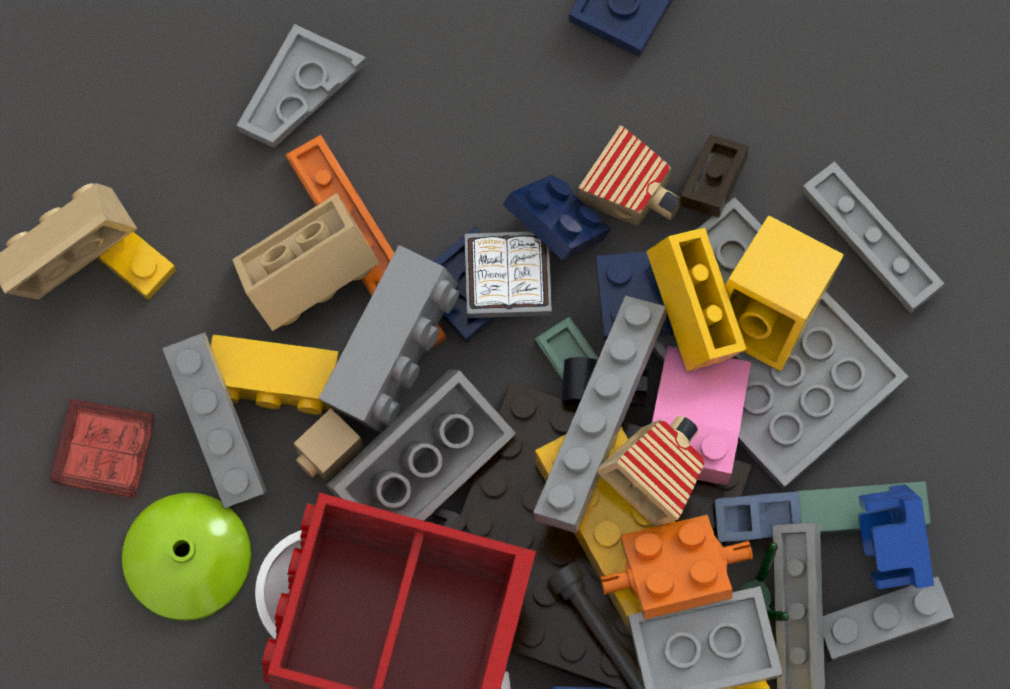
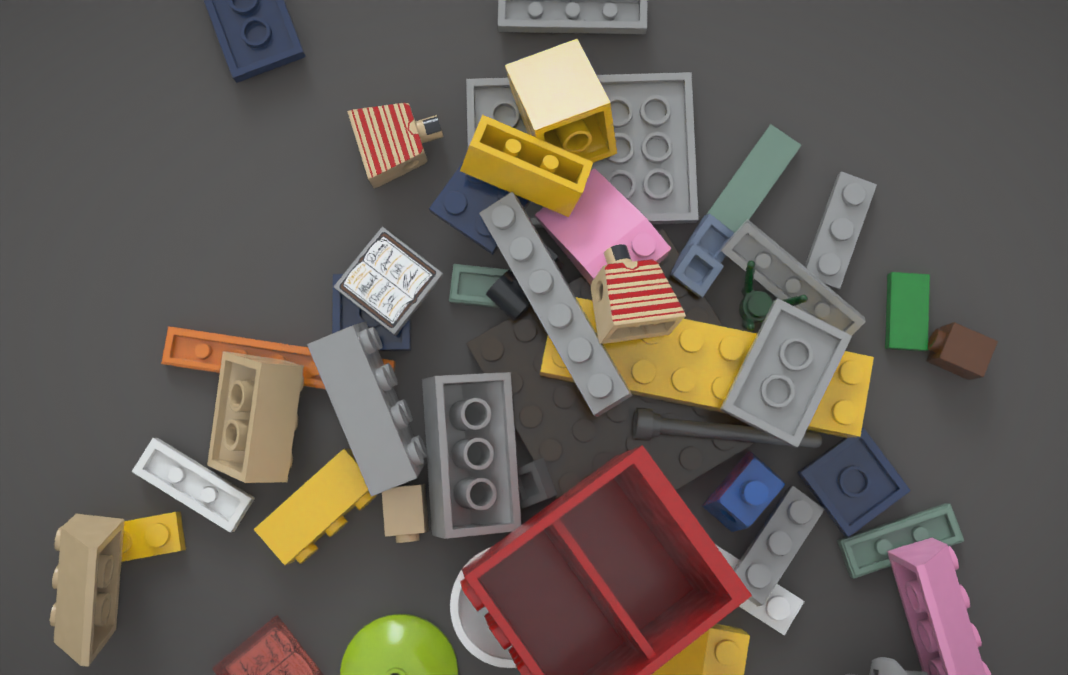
camera: 50 degrees left, 10 degrees up
(208, 261) = (193, 484): none -> white plate
(214, 420) = (317, 578): light grey plate -> none
(297, 84) = (115, 312): light grey wing -> none
(557, 216) = (375, 211): dark blue plate -> none
(676, 567) = (714, 345): orange plate -> none
(714, 176) = (438, 79): dark brown plate -> none
(896, 537) = (804, 166): blue panel -> none

